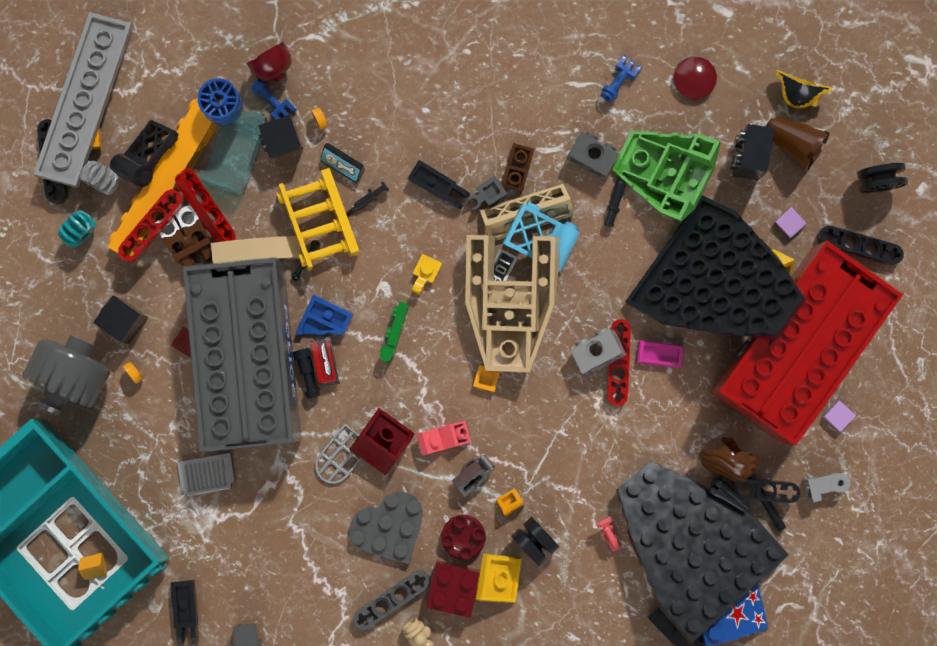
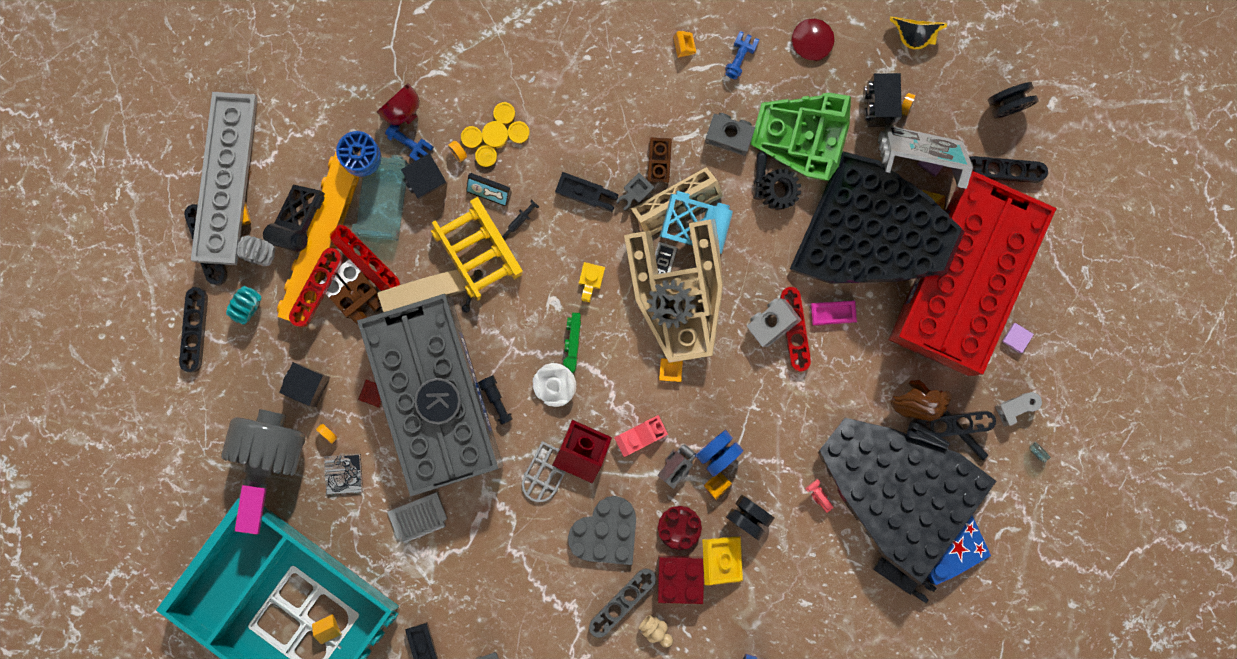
camera: 10 degrees left, 0 degrees up
(27, 244) = (189, 329): none -> black beam
(40, 433) = (250, 509): none -> dark pink tile
(141, 416) = (343, 474): none -> piece
(246, 362) = (437, 401): none -> black tile
(324, 318) = (501, 343): blue wing -> none
(324, 362) = (510, 386): slope -> none
(360, 110) = (495, 134): none -> yellow piece
(368, 369) = (554, 384): none -> white tile
(503, 320) = (665, 296): none -> dark grey gear
(517, 470) = (719, 453): none -> blue wheel
(566, 56) = (684, 43): none -> light orange slope
(642, 220) = (790, 187): none -> black tyre
(776, 160) = (907, 103): none -> light orange tile
(785, 209) = (925, 148): none -> light grey panel
(798, 140) = (925, 80): reddish brown cone -> none
(837, 534) = (1039, 452): none -> clear light blue tile

